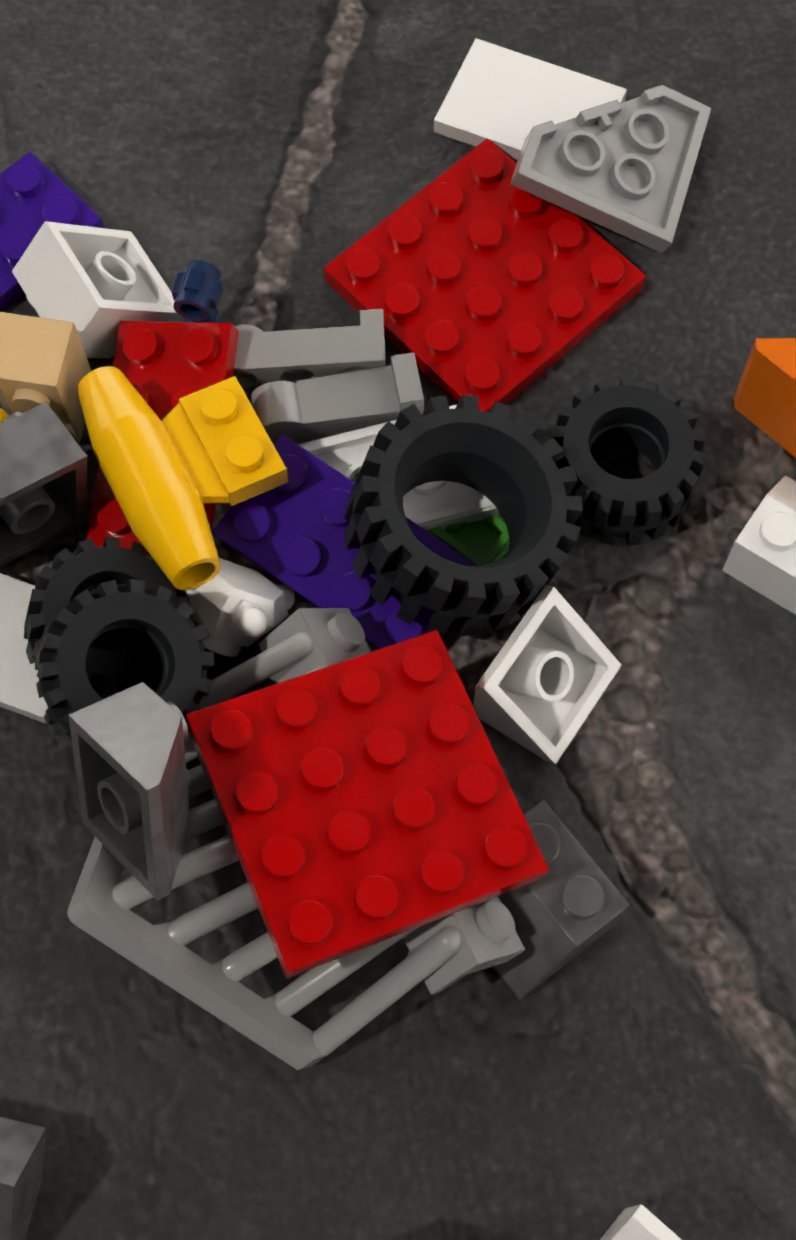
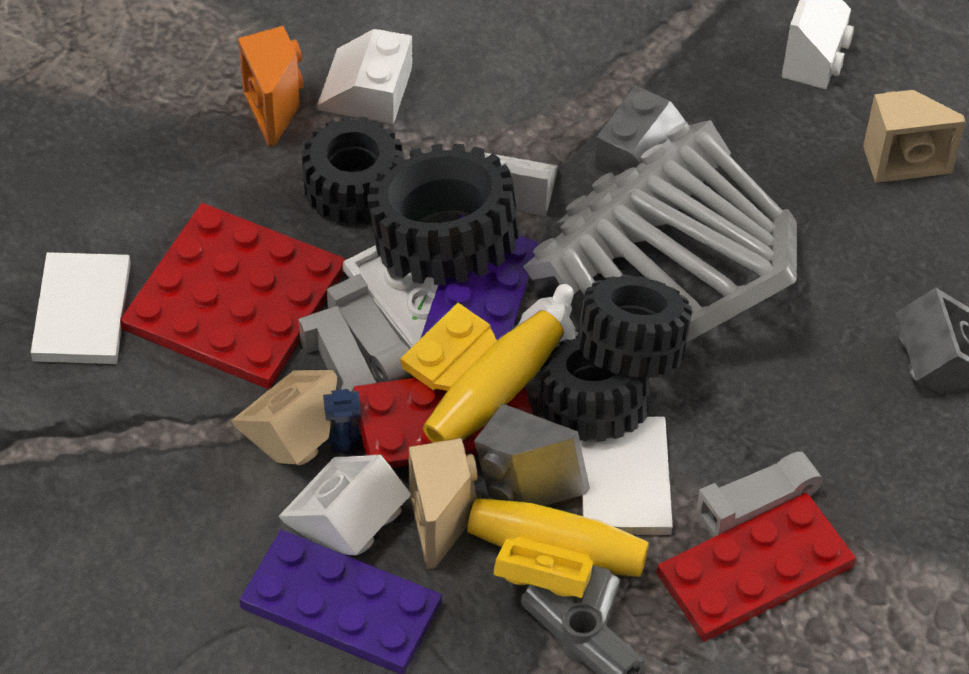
camera: 115 degrees left, 15 degrees down
(135, 782) = (711, 256): flat silver slope -> none
(257, 259) = (290, 417): none -> tan slope
(363, 801) = (650, 188): red plate -> none
(619, 163) = (119, 231): light grey plate -> none

